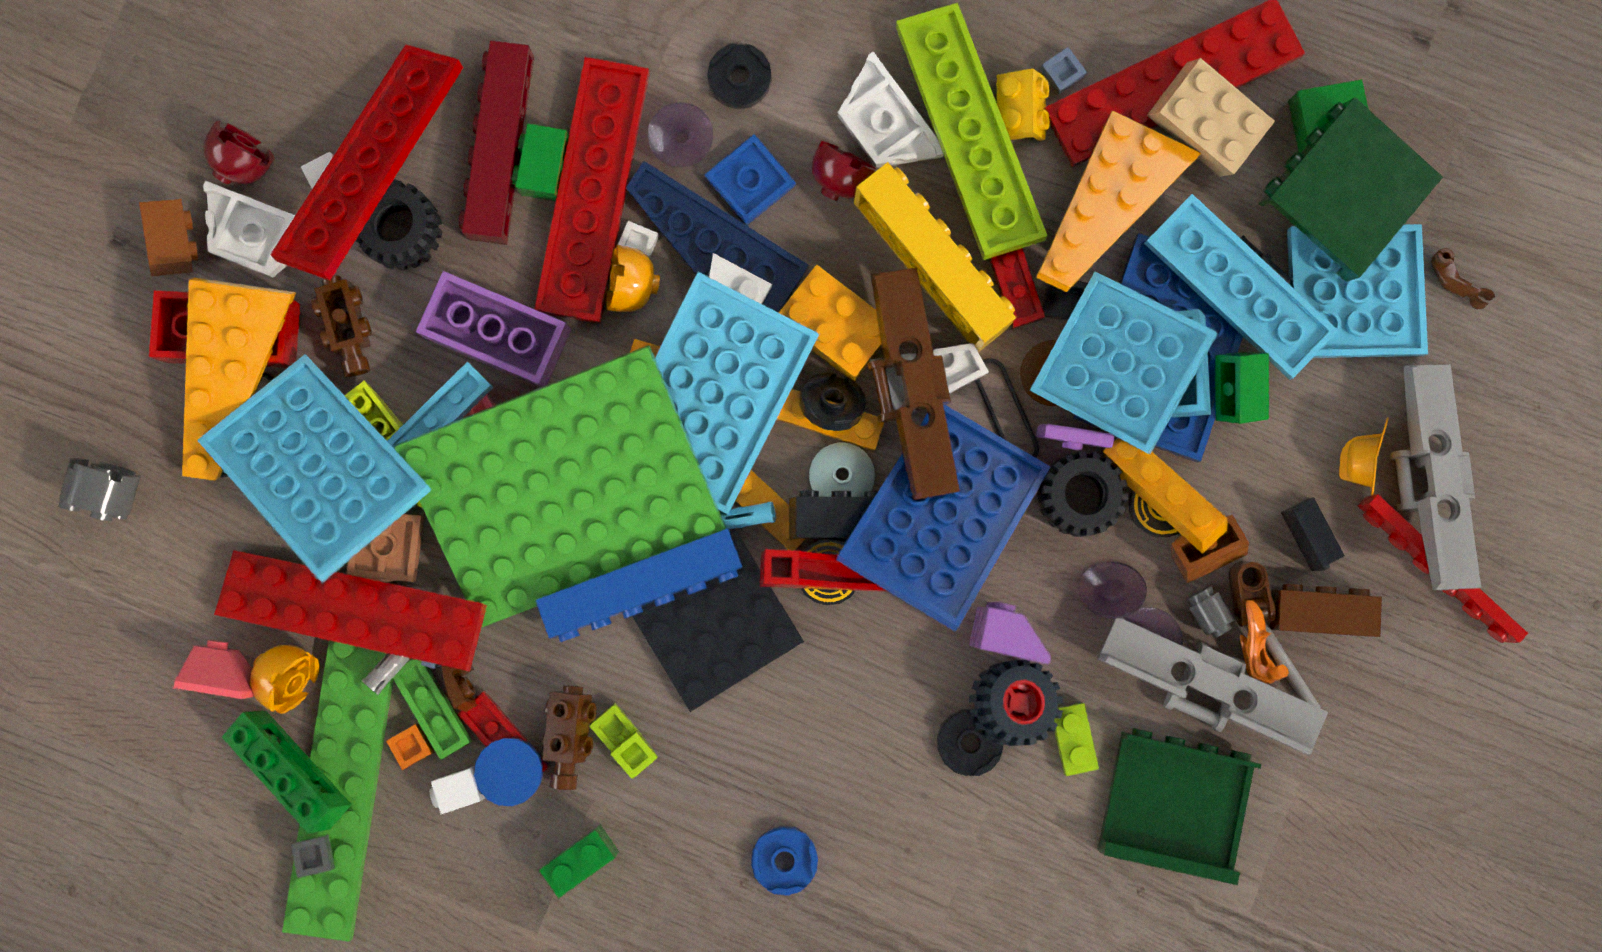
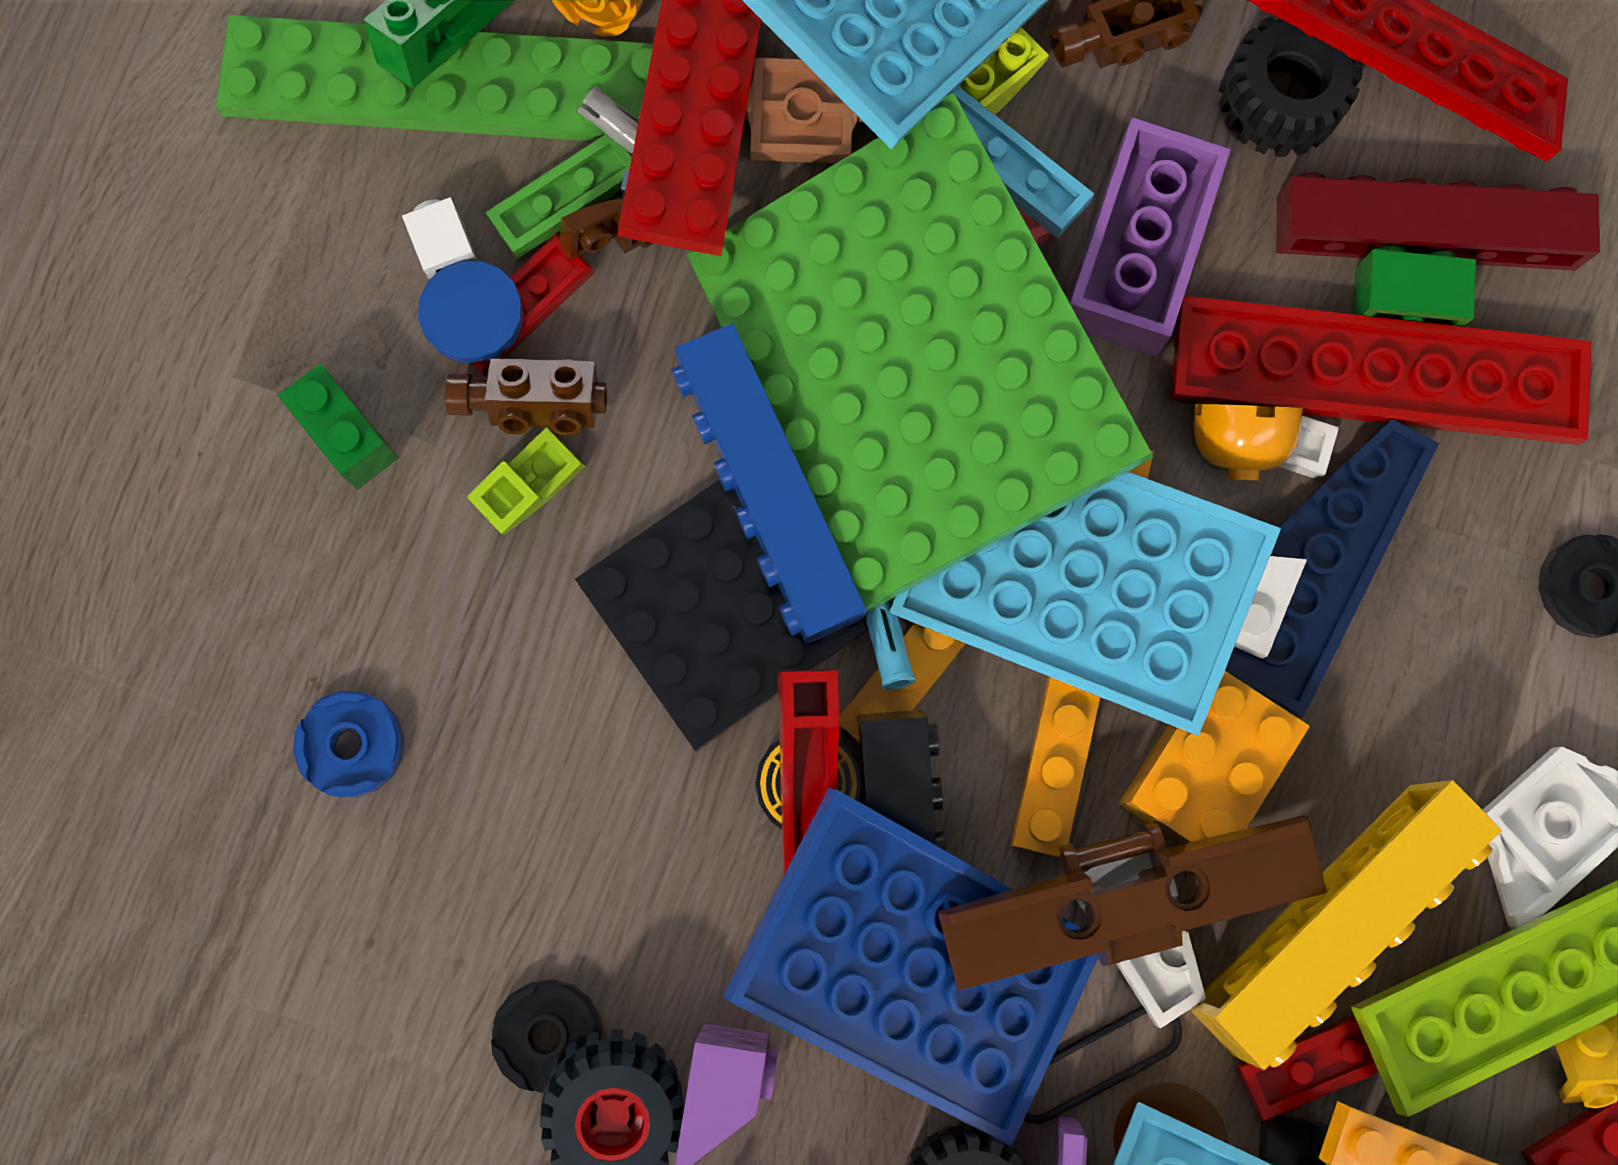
camera: 85 degrees right, 5 degrees down
(312, 856) = (335, 40): dark grey plate -> none
(410, 746) = (503, 169): orange tile -> none
(676, 120) = (1509, 493): clear purple dish -> none
(750, 180) = (1428, 614): blue tile -> none
(827, 415) = (1063, 763): black tile -> none
(837, 456) = (997, 791): light aqua dish -> none
(839, 171) = (1464, 750): dark red cylinder -> none

